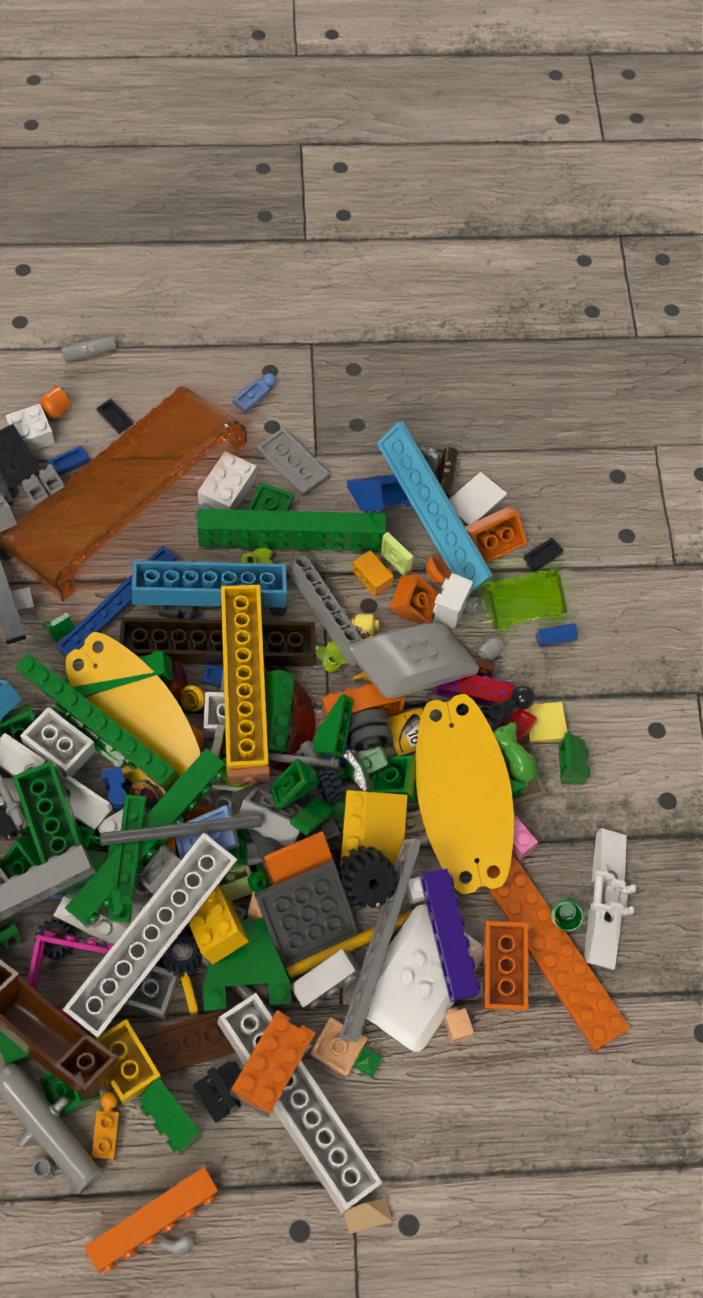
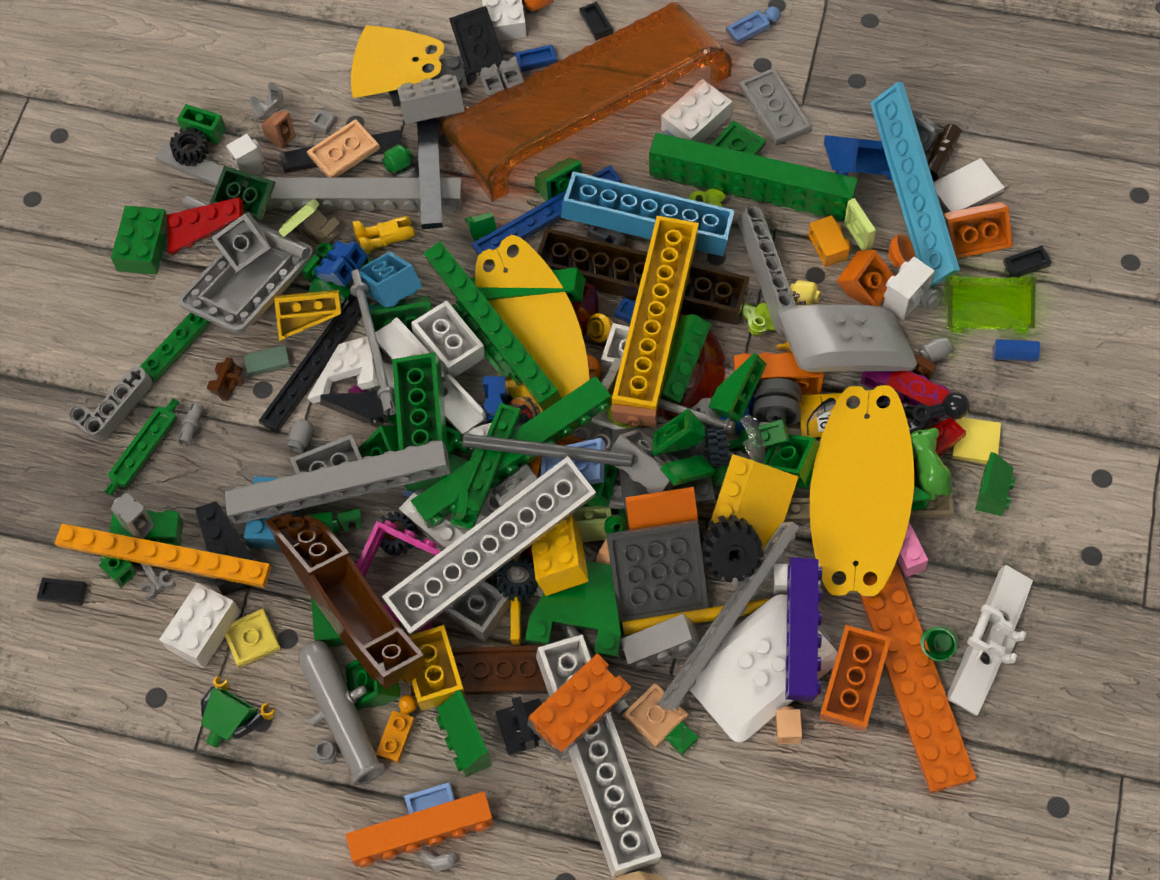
camera: 25 degrees right, 0 degrees up
(118, 568) = (556, 179): none -> green slope
(153, 1187) = (429, 798): none -> light blue tile

